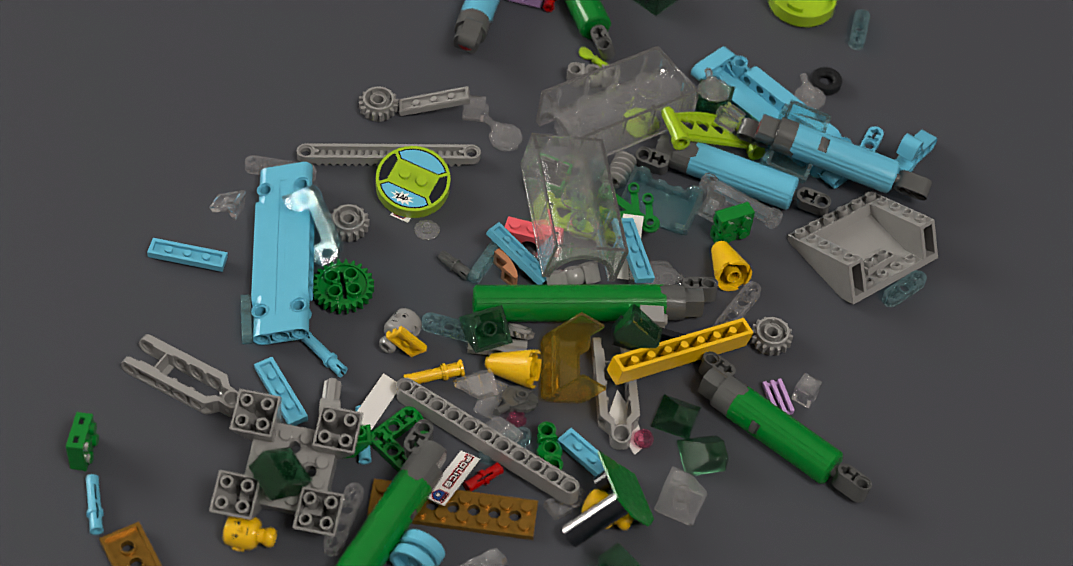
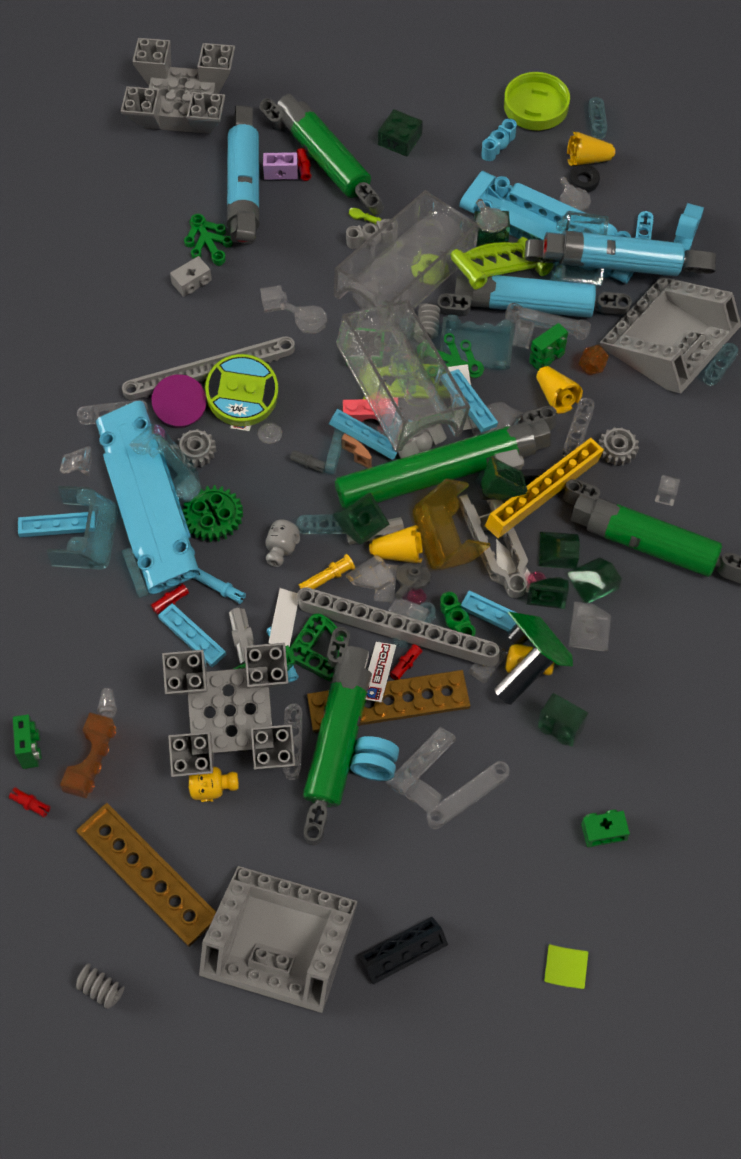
camera: 10 degrees left, 10 degrees up
(64, 500) = (29, 802): none -> red pin
(94, 510) = (62, 805): medium azure pin -> none
(121, 491) = (80, 778): none -> clear orange arch
(170, 358) = (146, 658): light grey piece -> none
(173, 432) = (107, 704): none -> clear cone
(218, 283) = (95, 547): none -> clear light blue windscreen
(275, 352) = (169, 598): none -> red pin
(280, 473) = (226, 722): clear green brick -> none
(348, 175) = (179, 401): none -> magenta tile
(378, 104) = (181, 320): light grey gear -> none
(402, 67) = (190, 276): none -> light grey brick
(406, 341) = (292, 552): yellow tile -> none
(428, 22) = (199, 222): none -> green plant
(434, 101) = (233, 302): light grey tile -> none
(521, 331) = (392, 509): light grey gear -> none
(649, 452) = (549, 593): none -> clear green slope
(729, 117) = (512, 242): clear brick -> none
(752, 23) = (498, 139): none -> medium azure piece
(774, 248) = (593, 359): none -> clear orange brick
(774, 384) = (647, 500): lavender tile -> none
(839, 55) = (588, 150): none -> yellow cone

